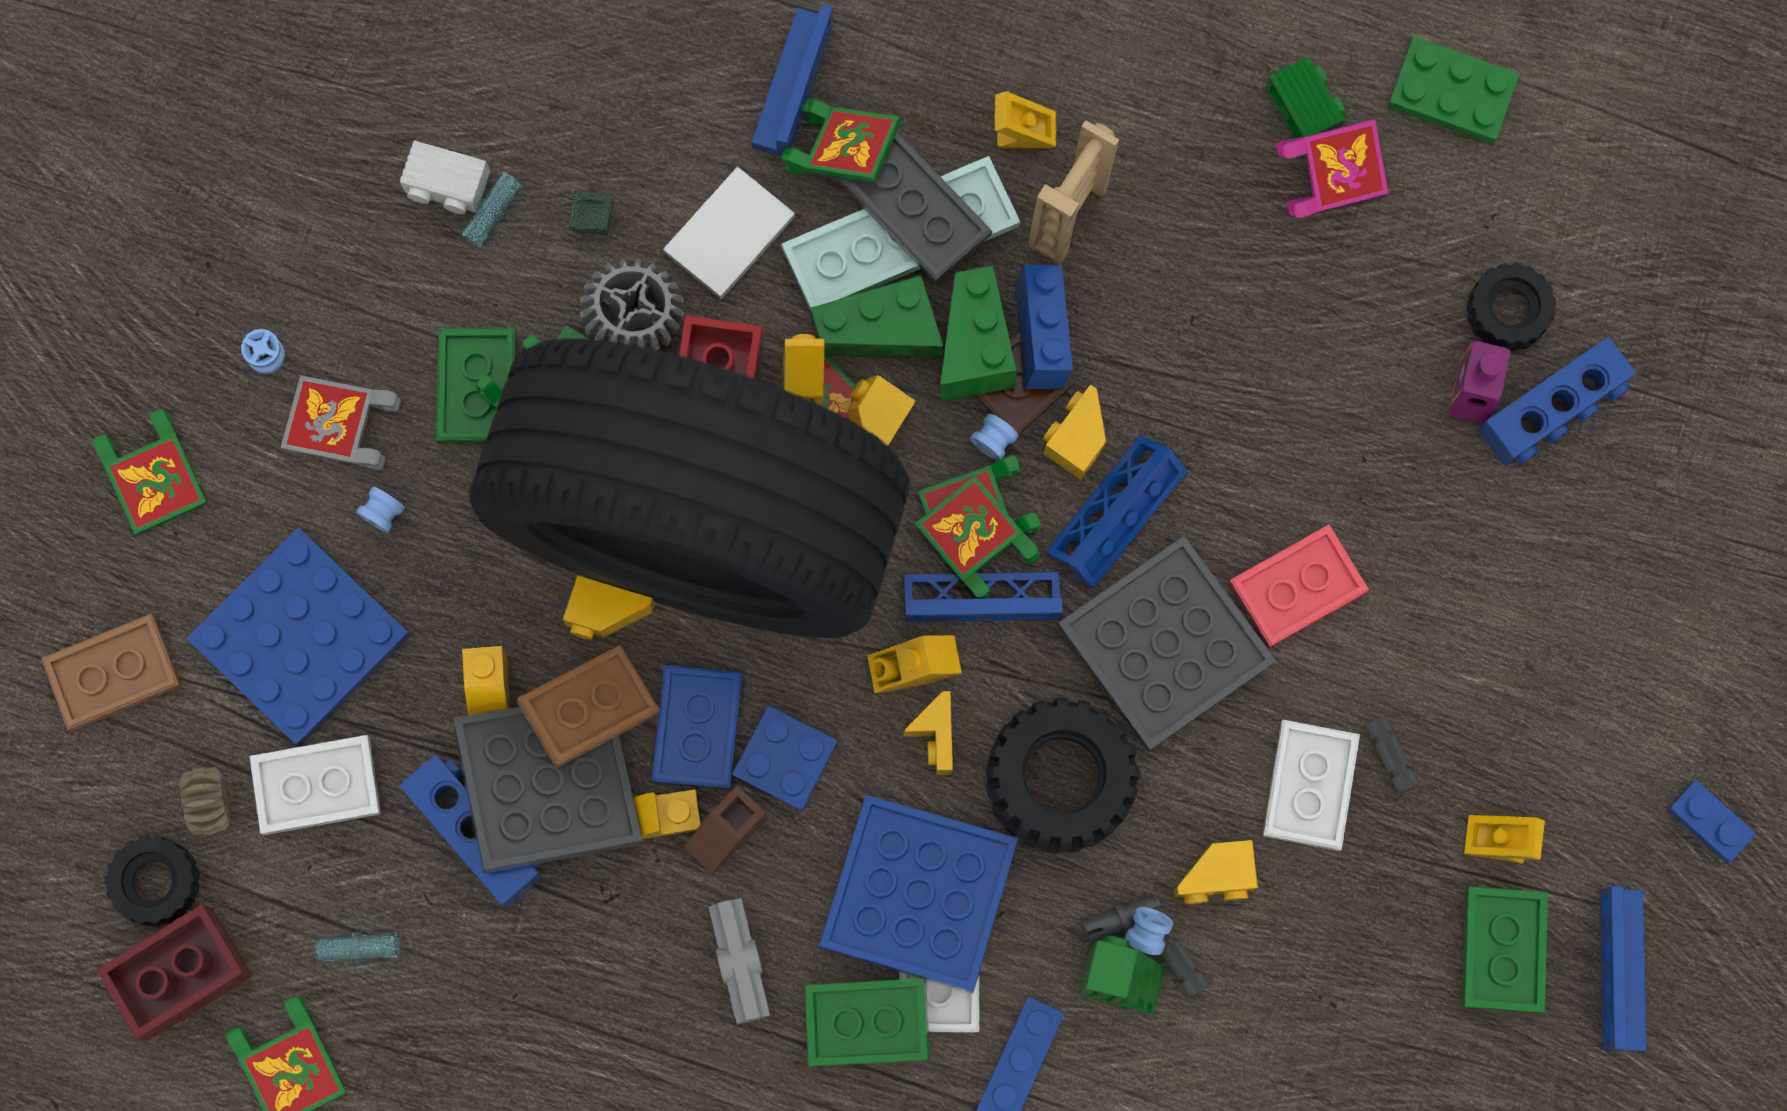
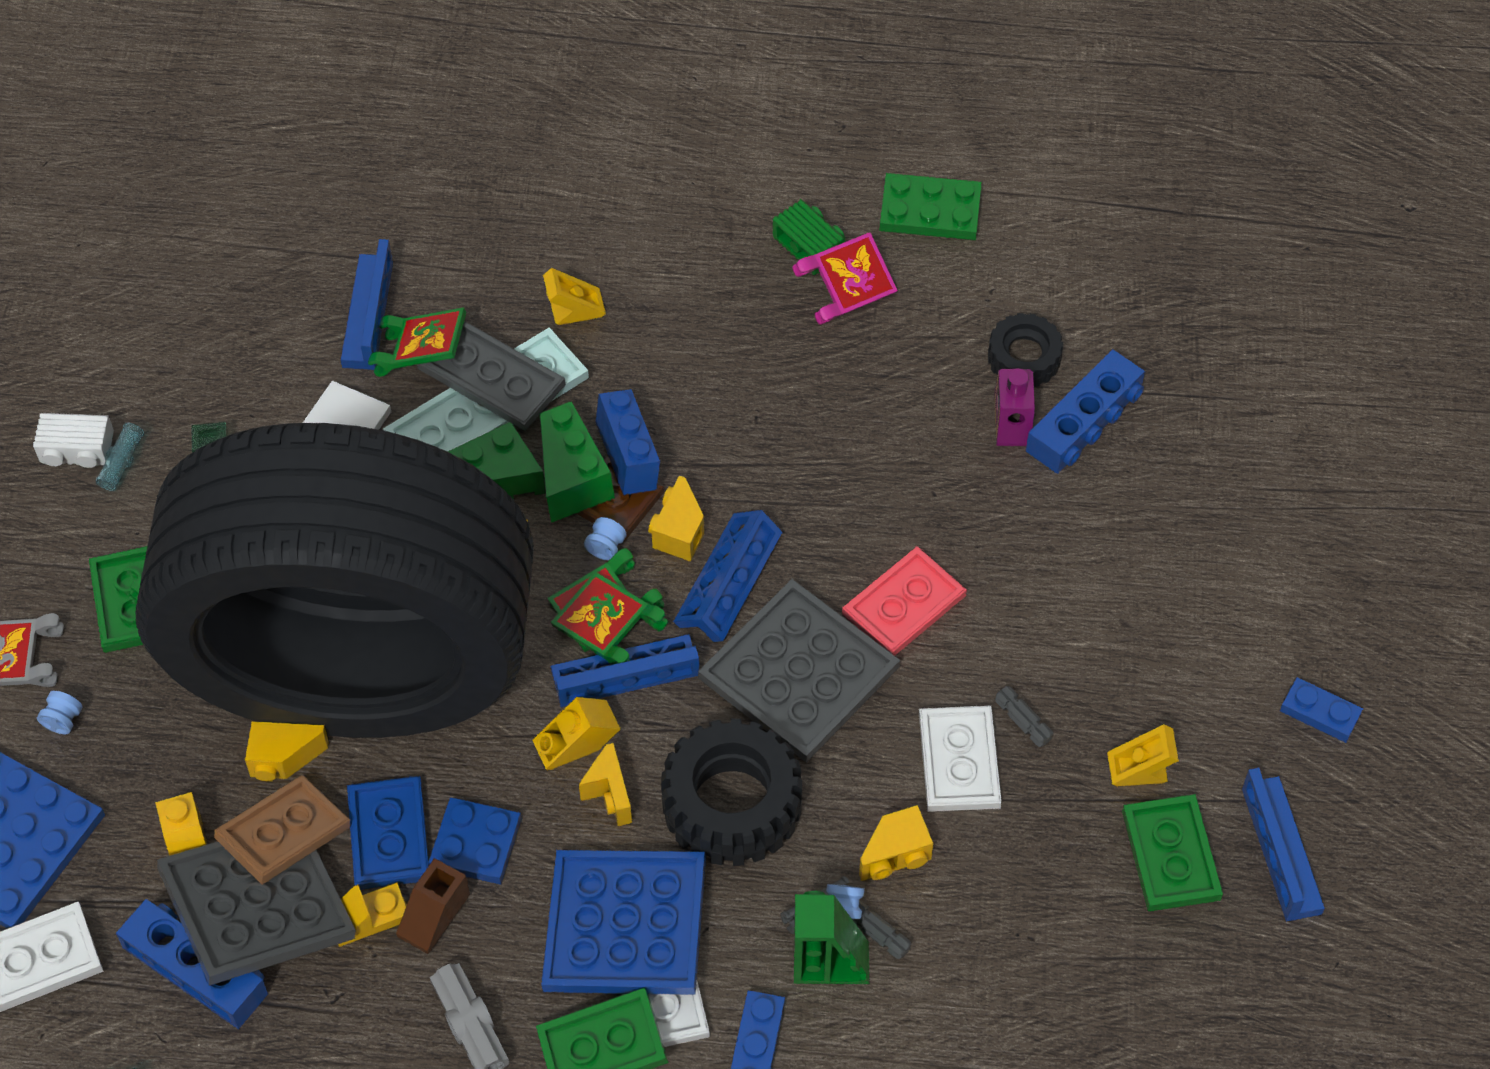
camera: 10 degrees left, 20 degrees down
(1058, 207) = (626, 323): tan fence -> none

